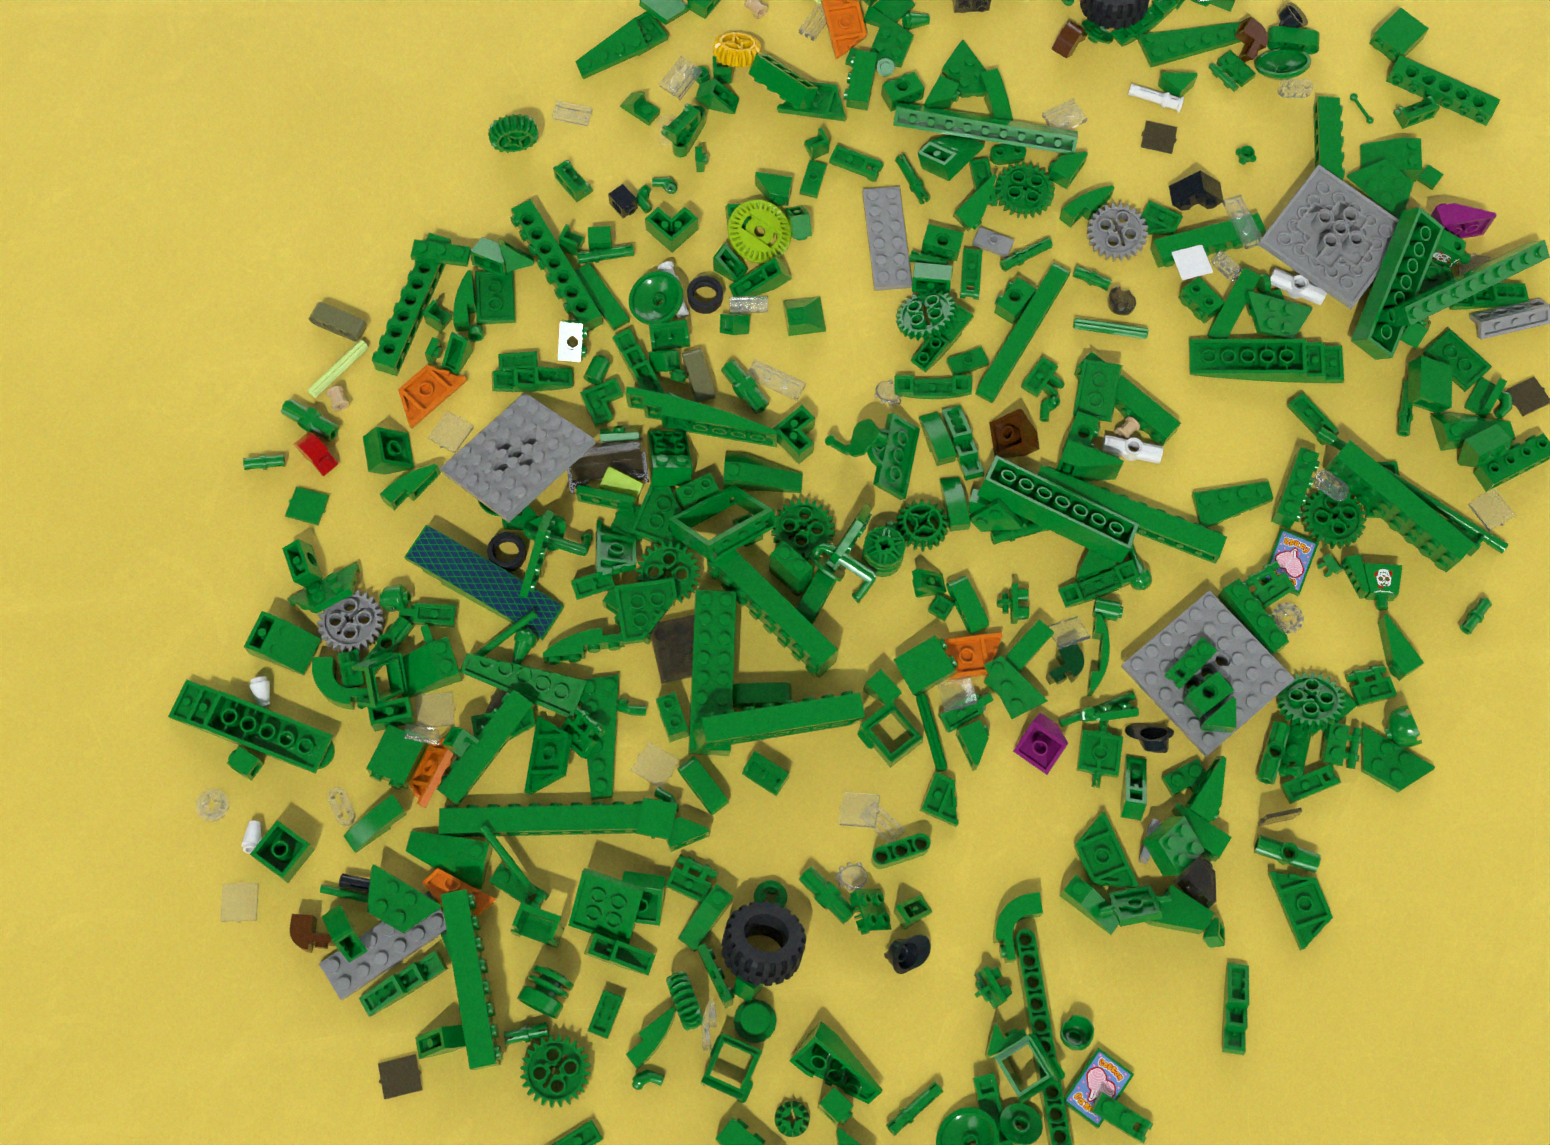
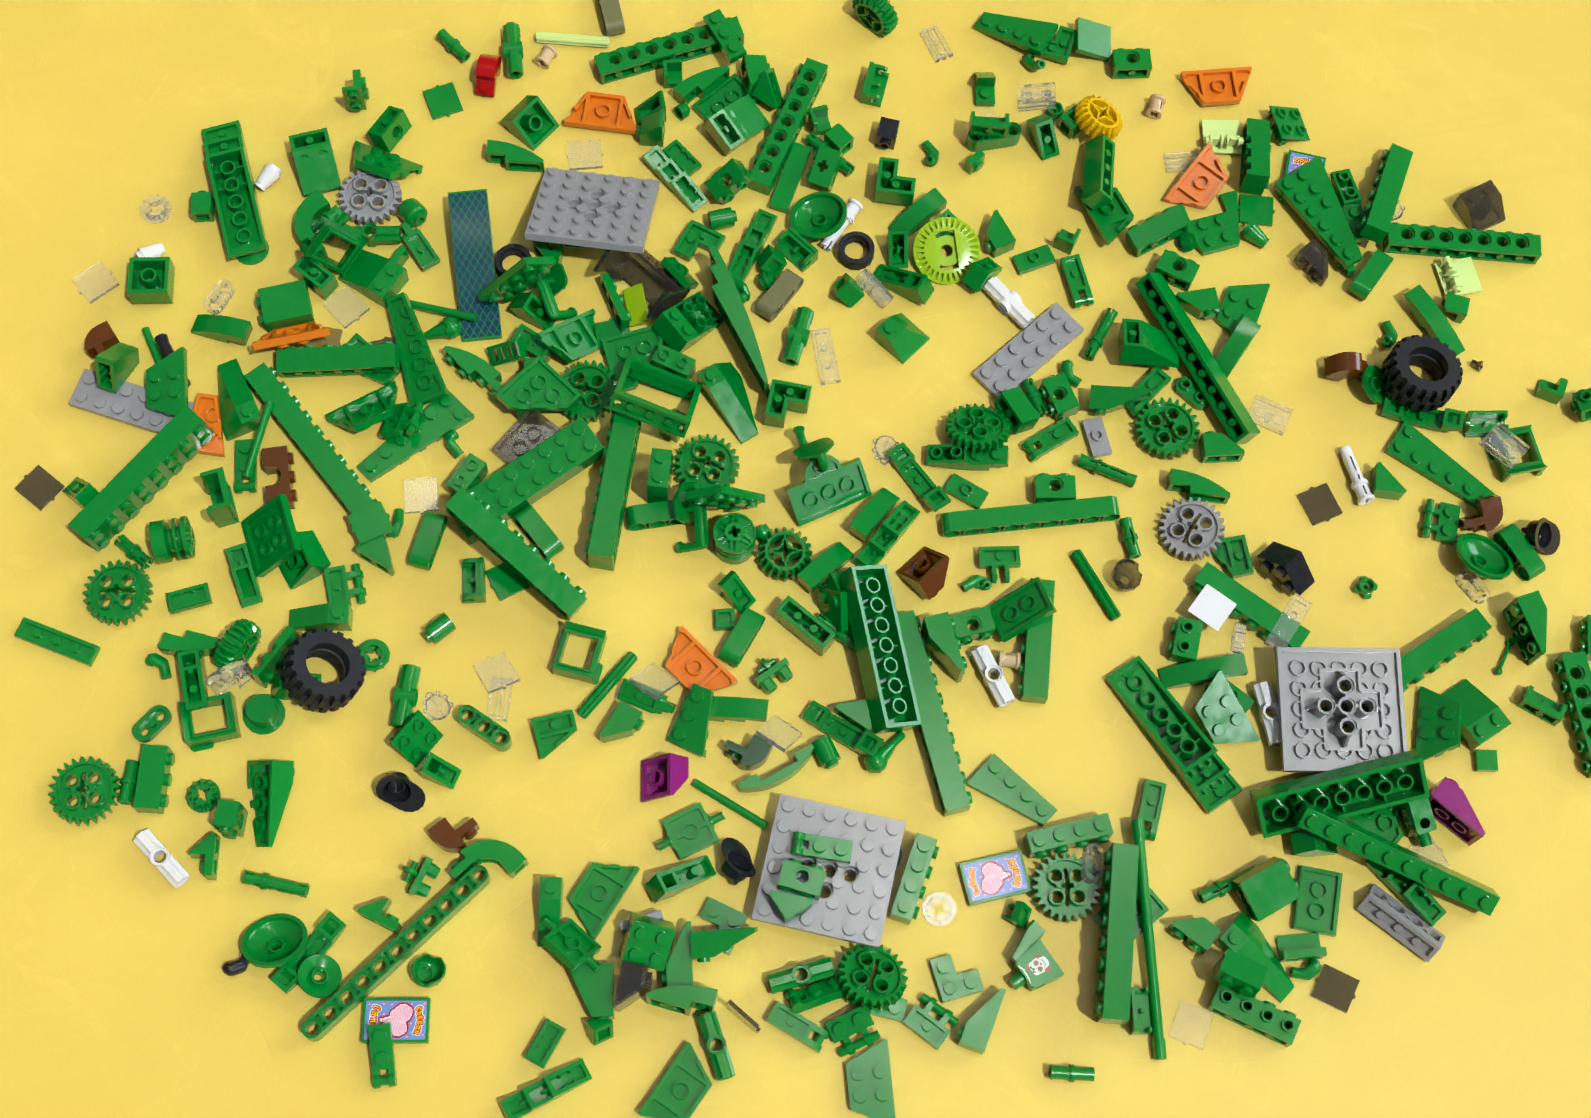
camera: 50 degrees right, 0 degrees up
(249, 568) = (356, 96): none -> green bracket
(403, 983) = (108, 436): green slope -> none
(422, 733) = (314, 307): clear piece -> none
(433, 350) = (641, 92): green plate -> none
(458, 740) = (321, 334): green panel -> none
(477, 364) = (652, 130): none -> green slope
(525, 302) = (736, 124): none -> green slope
(538, 857) = (278, 461): none -> reddish brown arch
(562, 566) = (531, 310): none -> green slope
(587, 594) = (519, 347): none -> green slope
(618, 254) = (833, 161): none -> green brick
(642, 198) = (904, 146): green arm -> none
(644, 62) = (1033, 65): none -> green arm
(690, 1057) = (192, 676): none -> green slope
(697, 1120) = (151, 723): none -> green plate
(711, 228) = (920, 212): none -> green slope
(783, 749) = (505, 581): none -> green piece
(787, 829) = (438, 628): none -> green brick
(837, 220) = (1009, 302): none -> white piece
(882, 688) = (611, 616): green slope -> none
(922, 221) = (1067, 367): none -> green arm
(926, 665) = (658, 638): green brick -> none
(975, 942) = (450, 839): none -> reddish brown brick
(995, 551) = (805, 625): none -> green brick
(1049, 1064) = (378, 961): green piece -> none
(1107, 712) = (730, 813): green hinge -> none
(1197, 982) = (545, 1043): none -> green plate
(1238, 848) = (683, 998): none -> green slope
(1264, 283) = (1248, 682): green tile -> none
(1272, 590) = (952, 878): green plate -> none
(1350, 651) = (952, 985): none -> plate
(1357, 74) = (1528, 624): none -> green slope
(1402, 728) = (909, 1073): green cylinder -> none
(1429, 455) = (1196, 932): none -> green slope

